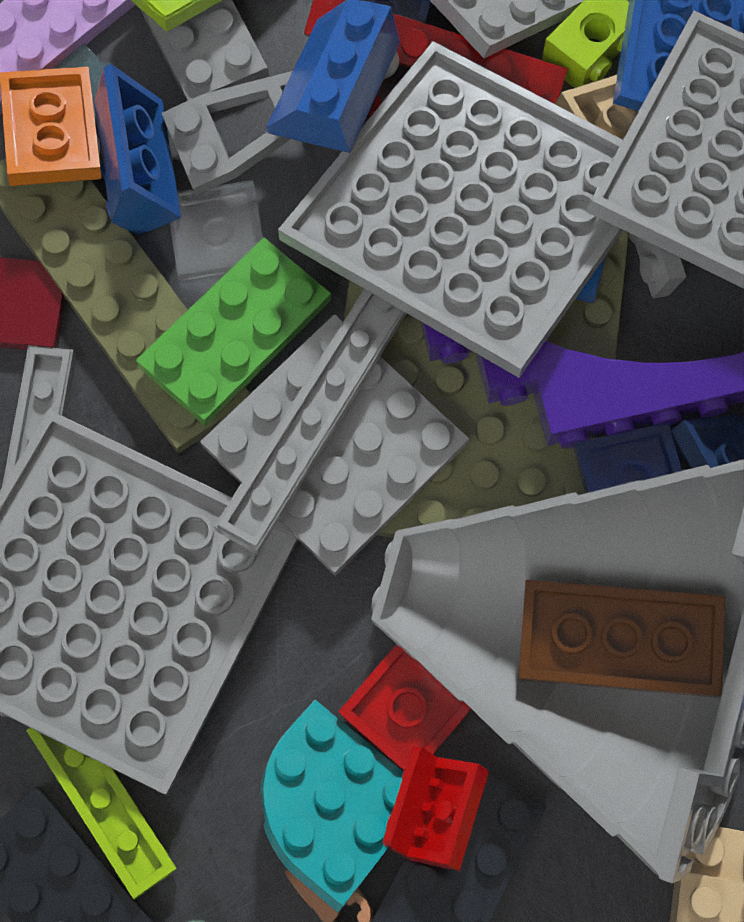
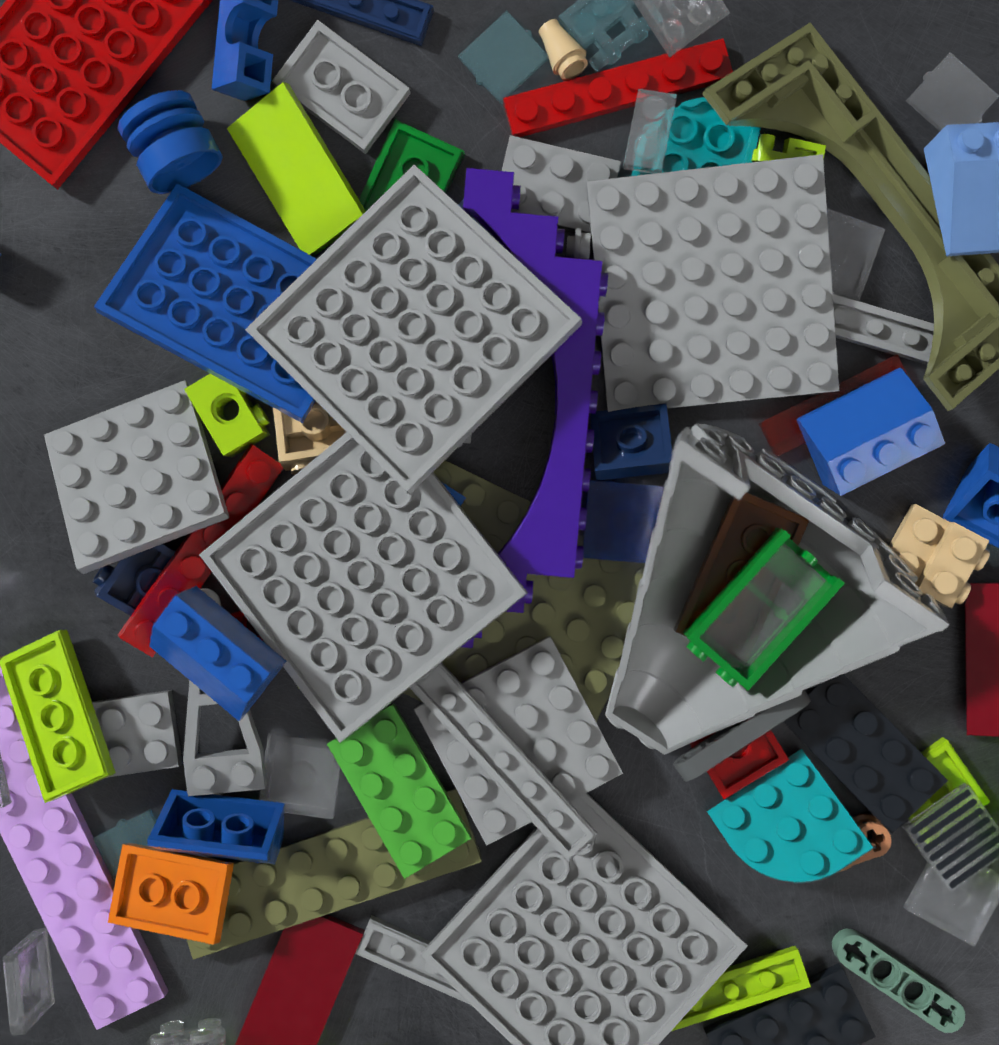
camera: 75 degrees left, 15 degrees up
(432, 700) = (735, 737): none -> dark grey beam
(435, 809) = (823, 756): red bracket -> none
(593, 664) = (761, 610): none -> door

